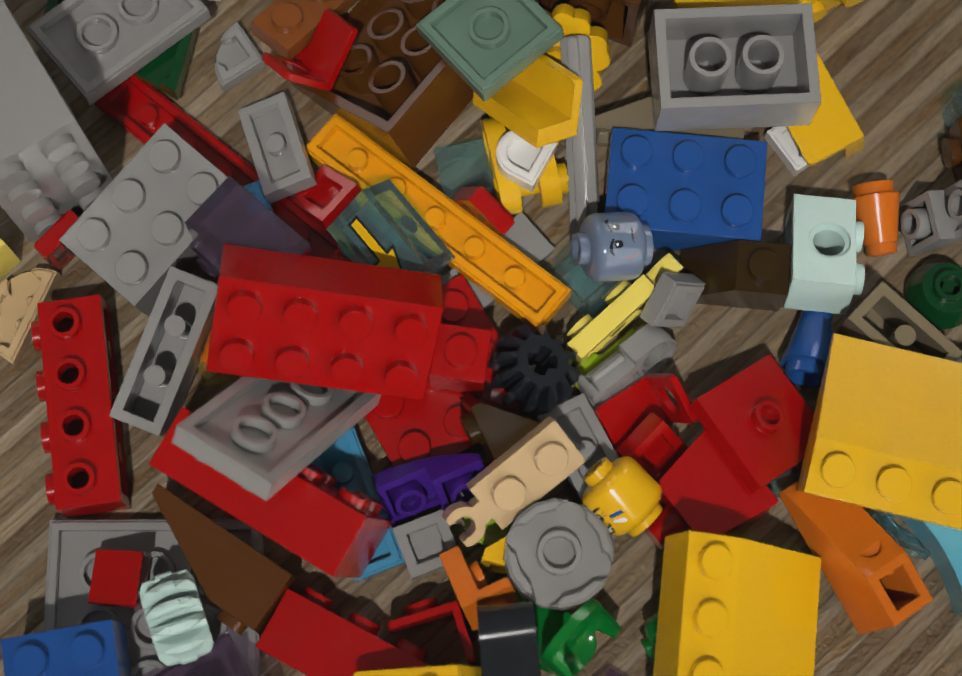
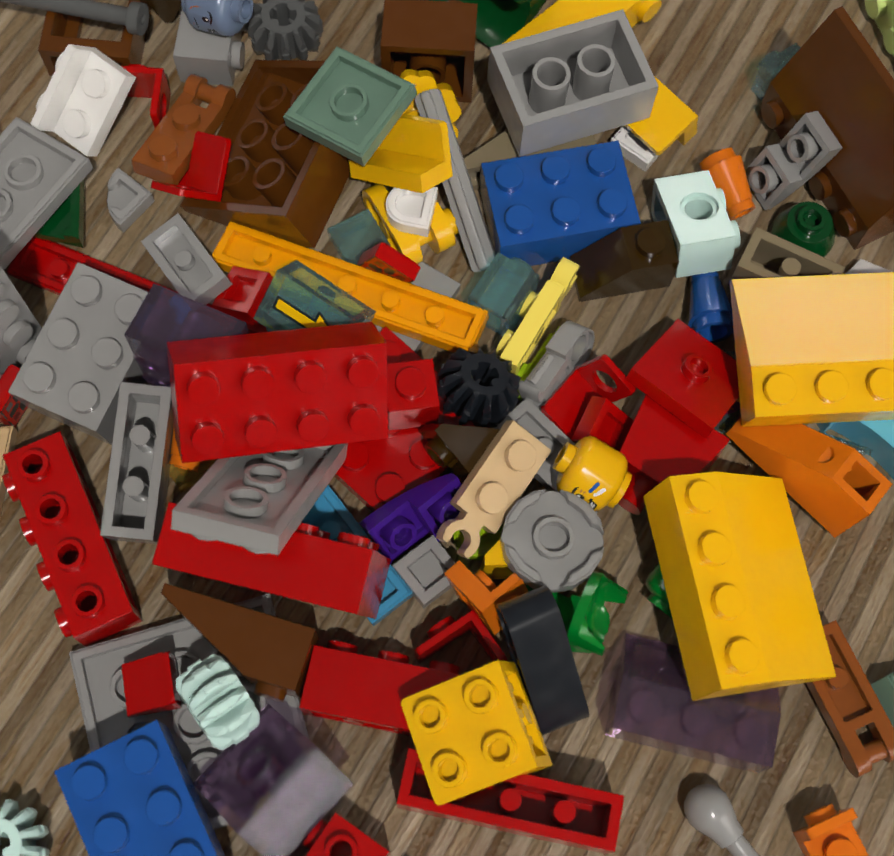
camera: 20 degrees left, 5 degrees down
(612, 246) = (515, 260): sand blue head -> none
(672, 300) = (579, 296): light grey tile -> none

